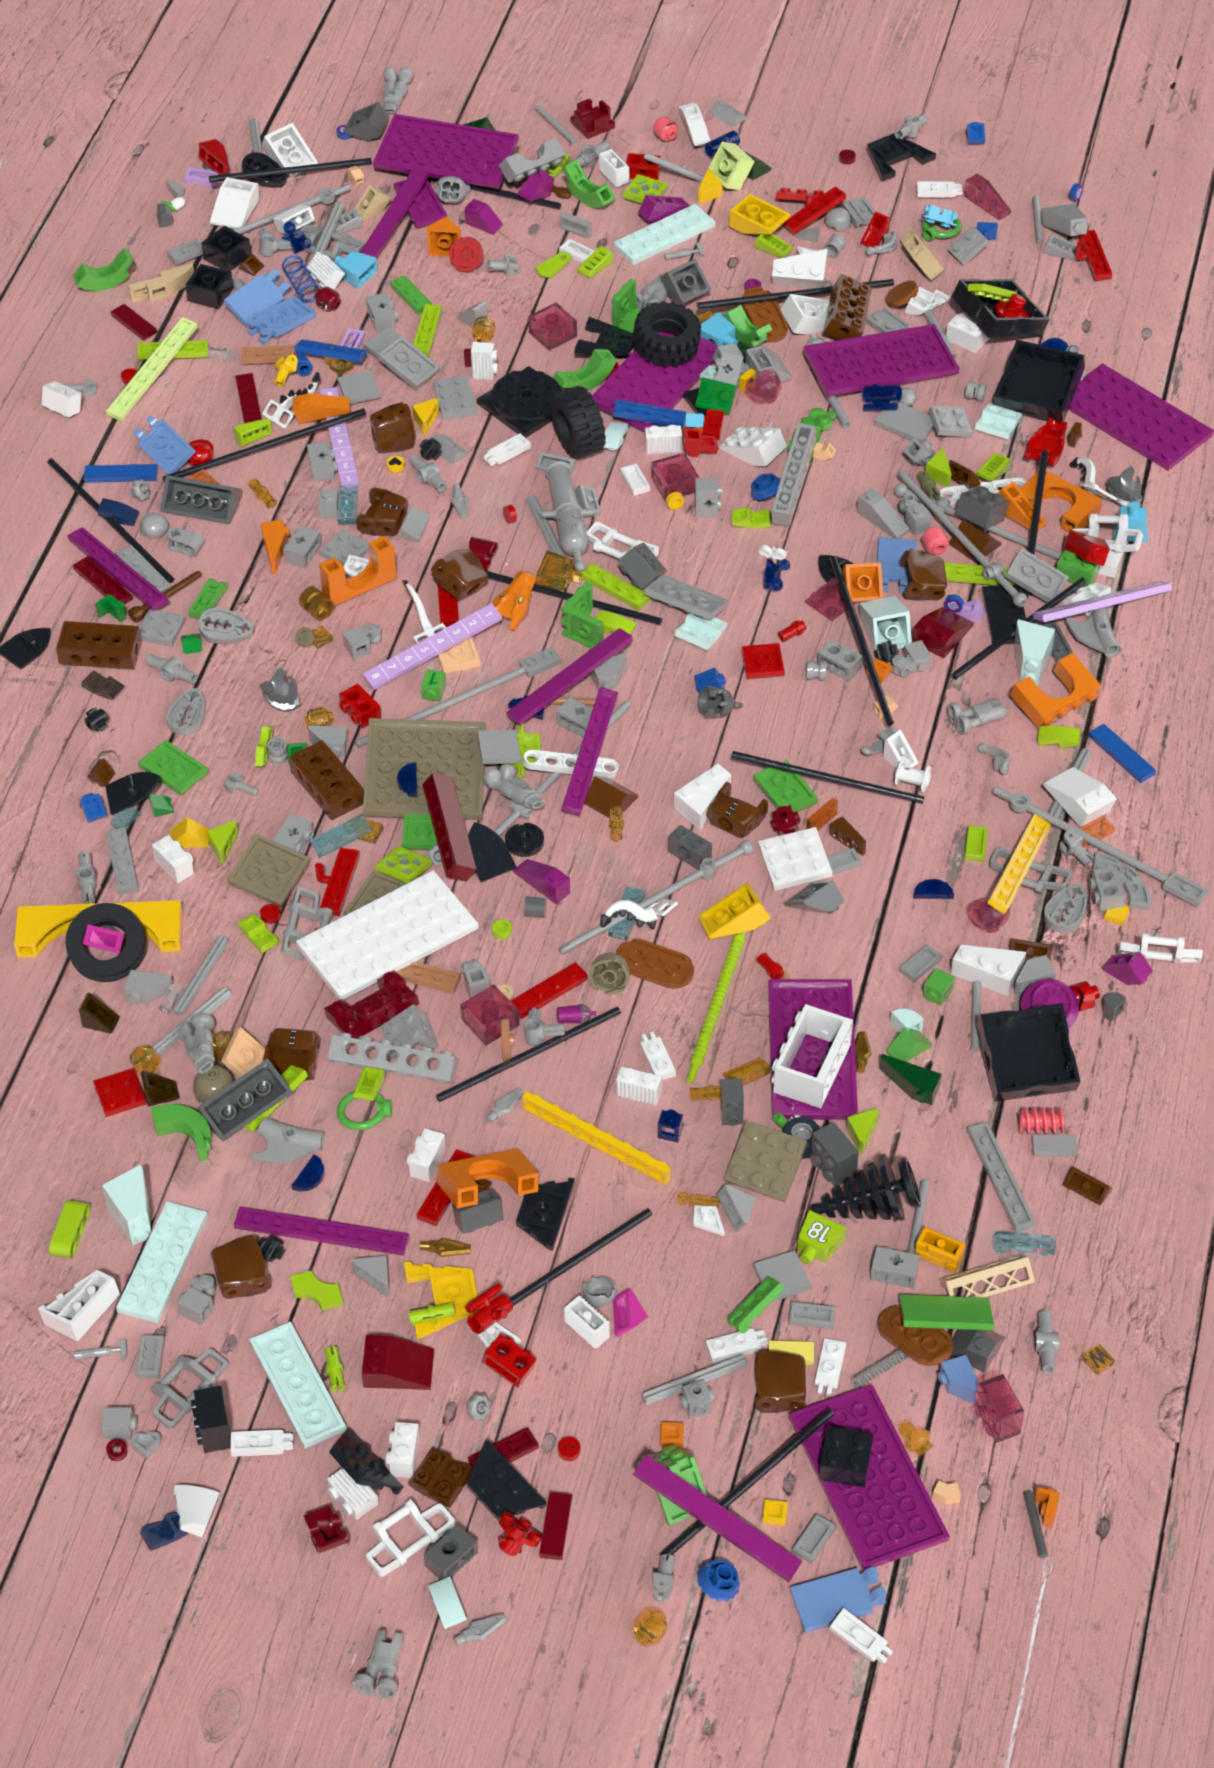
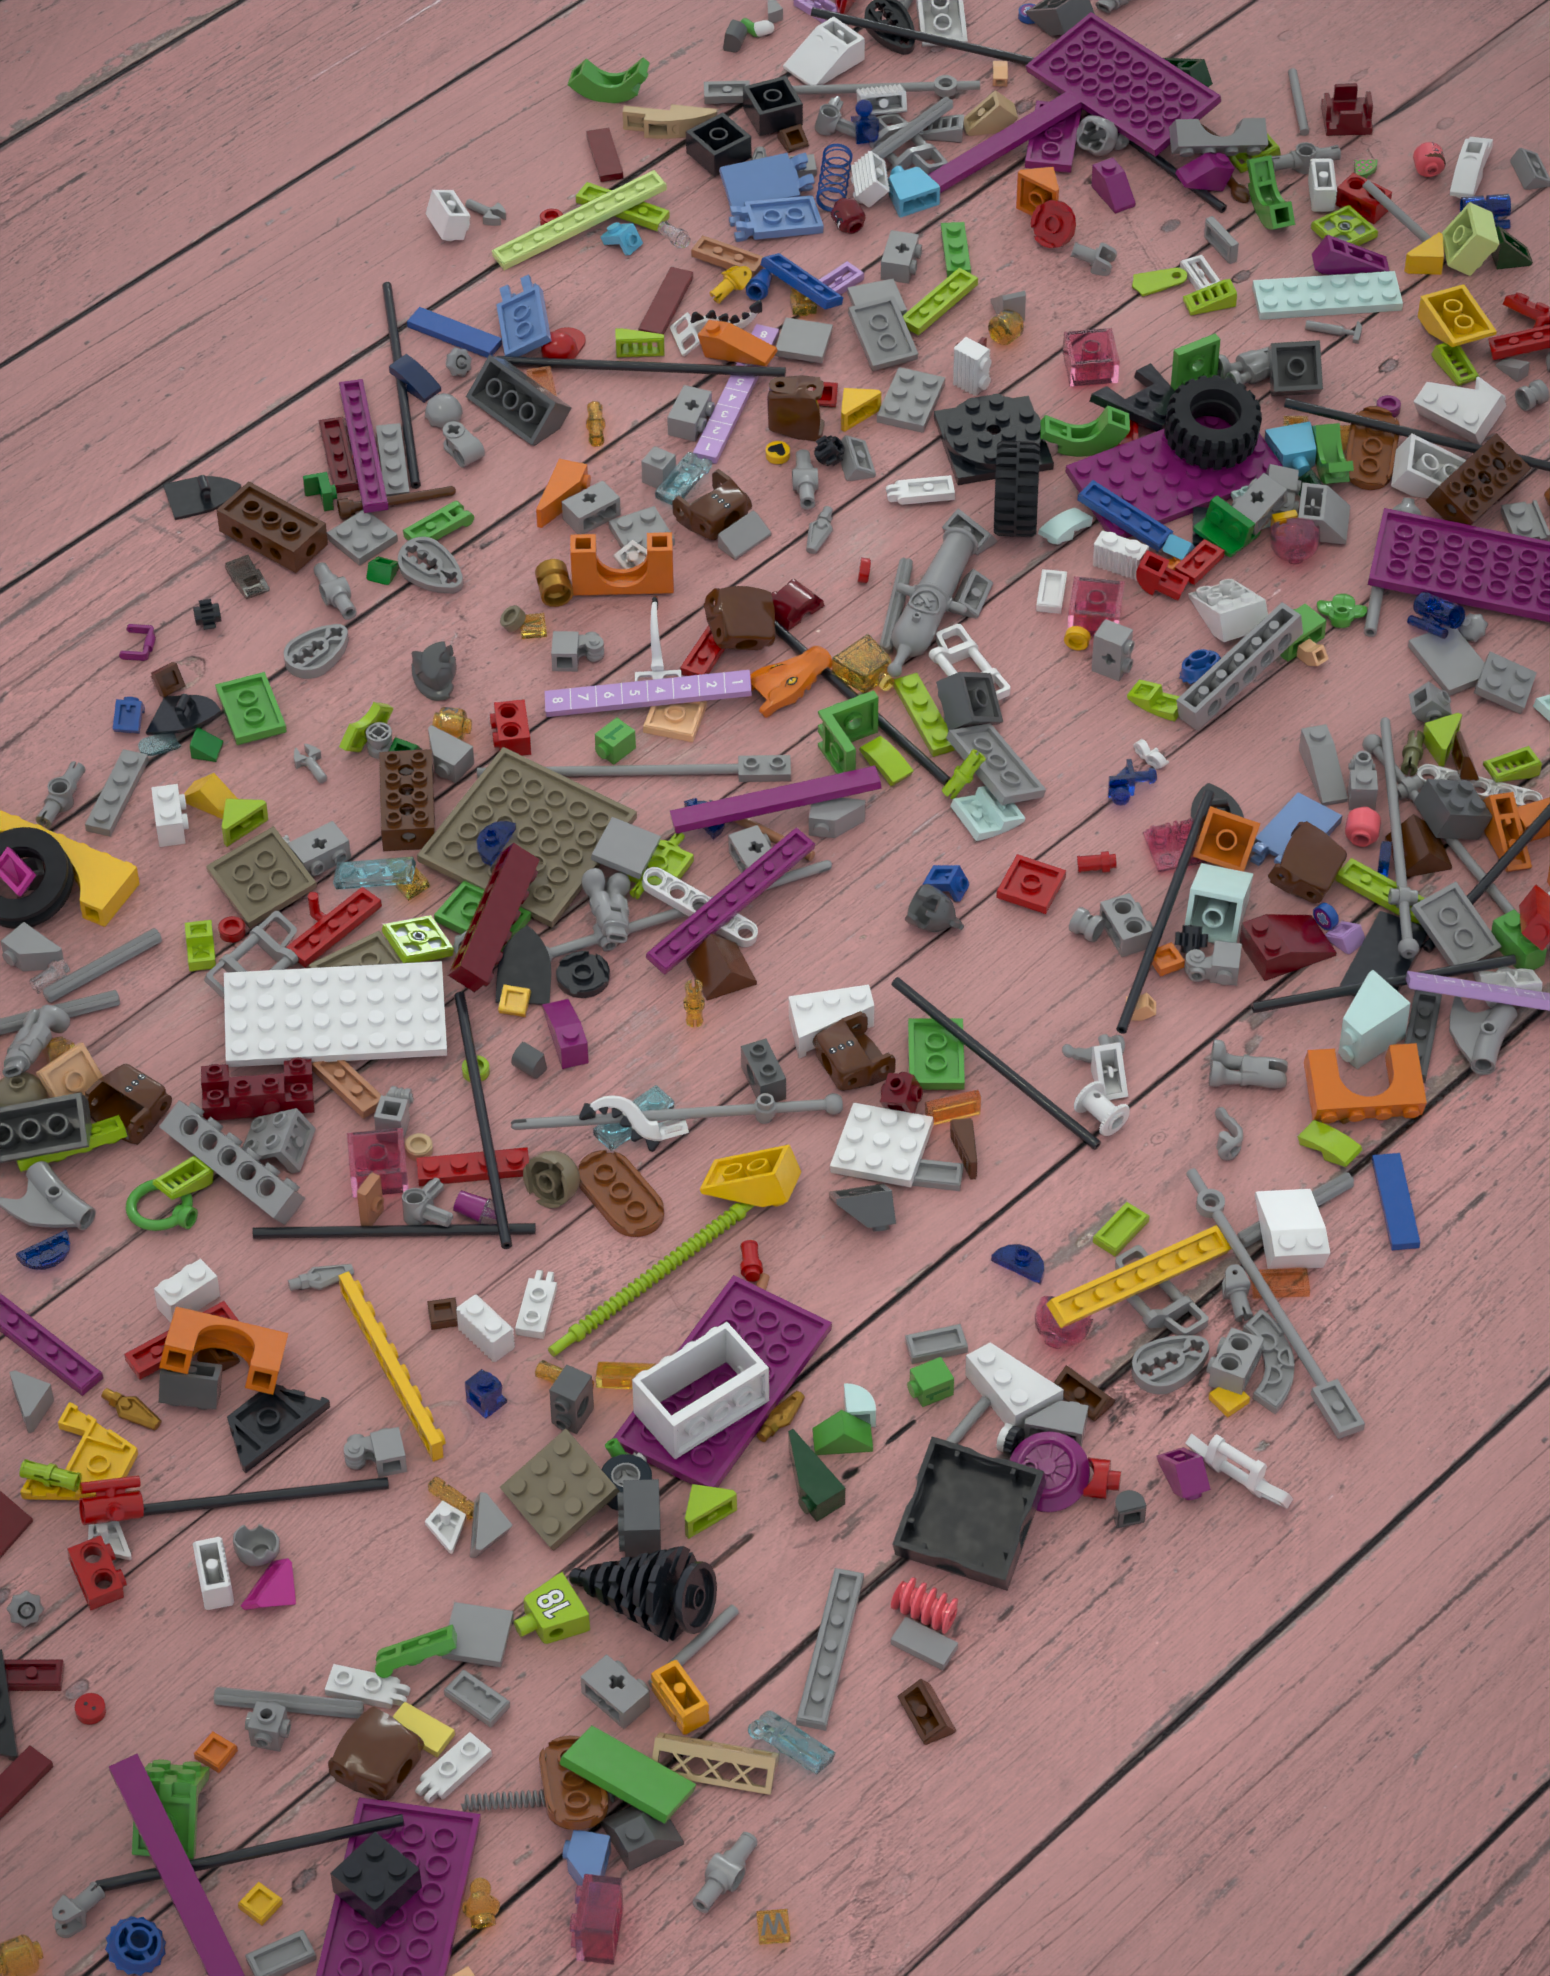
camera: 30 degrees right, 0 degrees up
(67, 755) = (148, 644): none -> magenta piece
(187, 367) = (622, 234): none -> medium azure bracket
(494, 875) = (514, 1000): none -> yellow tile
(537, 957) = (483, 1121): none -> black piece
(601, 1090) = (442, 1313): none -> reddish brown tile
(627, 148) = (1365, 167): none -> bright green tile
(634, 1191) = (381, 1447): none -> light grey brick
(674, 611) = (963, 774): none -> lime pin
(961, 554) = (1384, 858): none -> clear blue tile
(1012, 998) = (1009, 1438): none -> black piece

